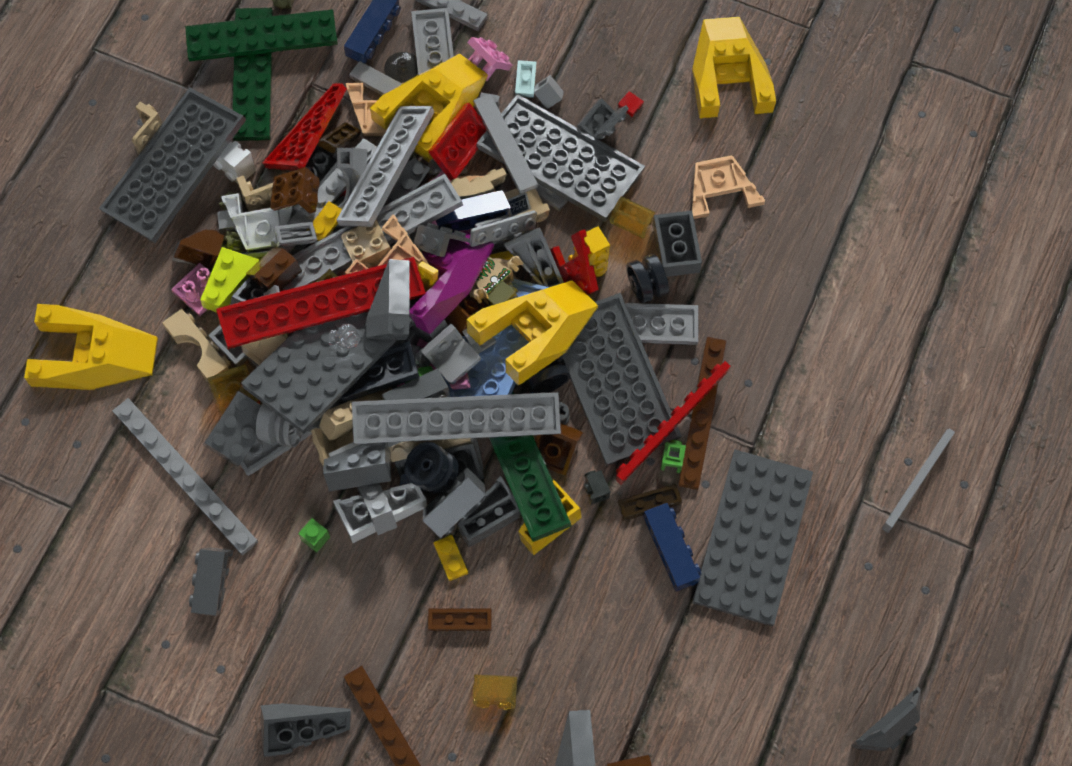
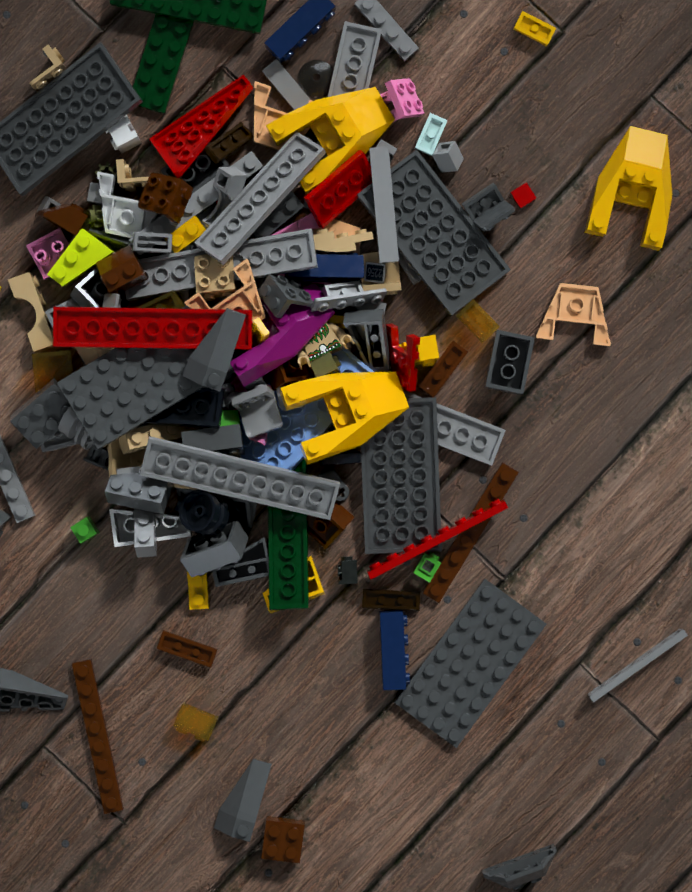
camera: 20 degrees right, 20 degrees up
(305, 461) = (97, 457): none -> dark grey piece
(344, 337) = (162, 371): clear animal -> none
(616, 270) = (443, 369): none -> reddish brown plate
(647, 278) = (464, 390): black wheel -> none

